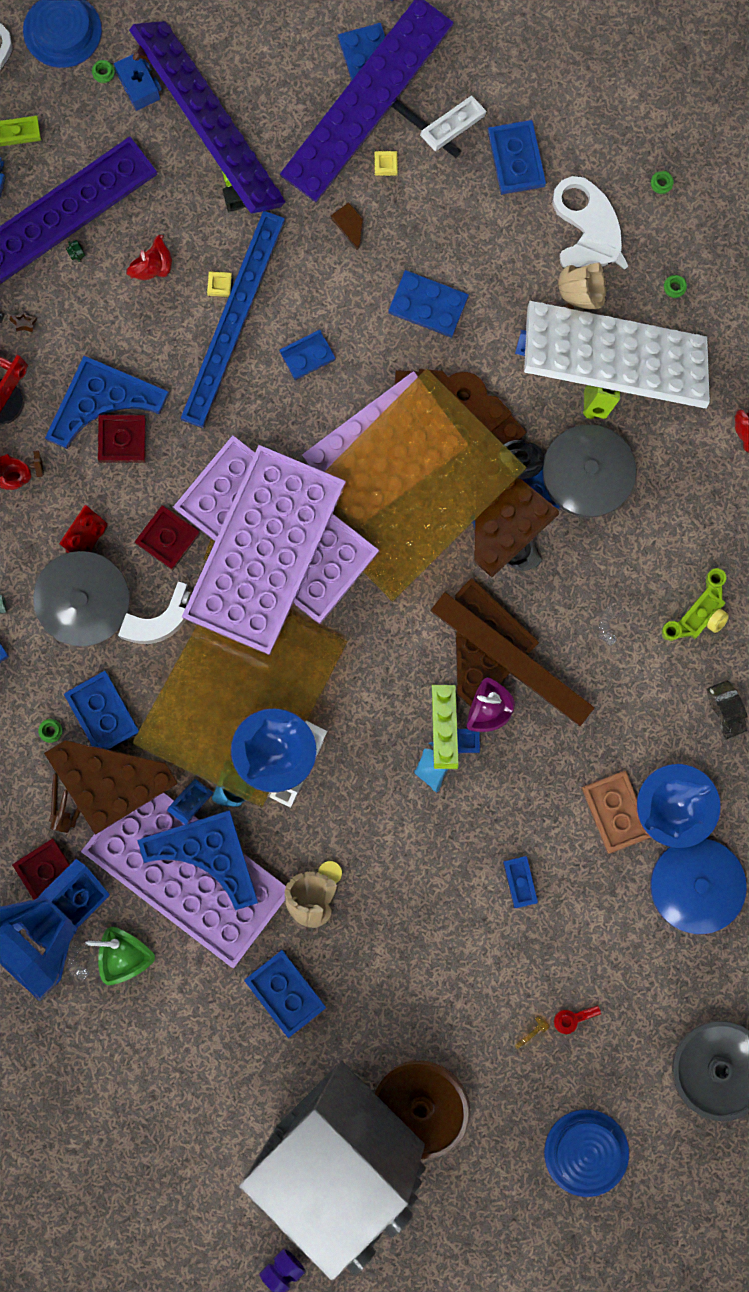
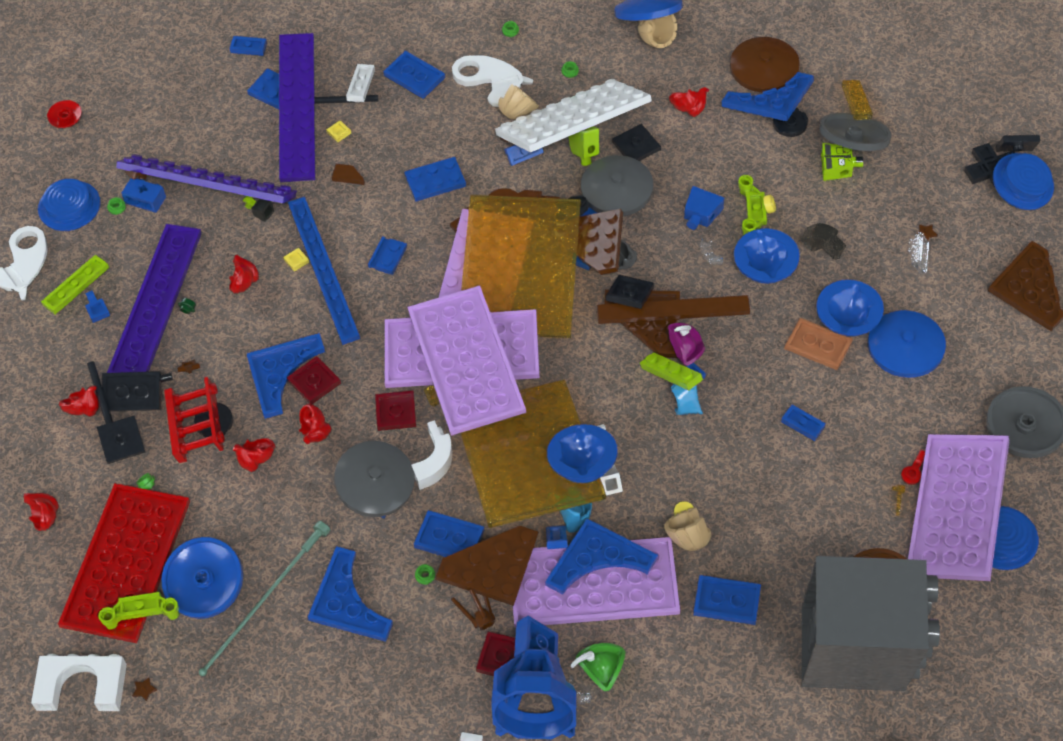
camera: 30 degrees left, 25 degrees down
(37, 464) = (272, 433): reddish brown piece -> none
(79, 489) = (313, 424): none -> red hair
(83, 531) = (339, 441): red hinge -> none
(488, 605) = (630, 291): none -> black plate
(571, 1096) = (959, 505): none -> lavender plate
(648, 567) = (702, 207): none -> blue torso
(656, 678) = (766, 255): none -> blue piece
(658, 434) = (636, 143): none -> black plate

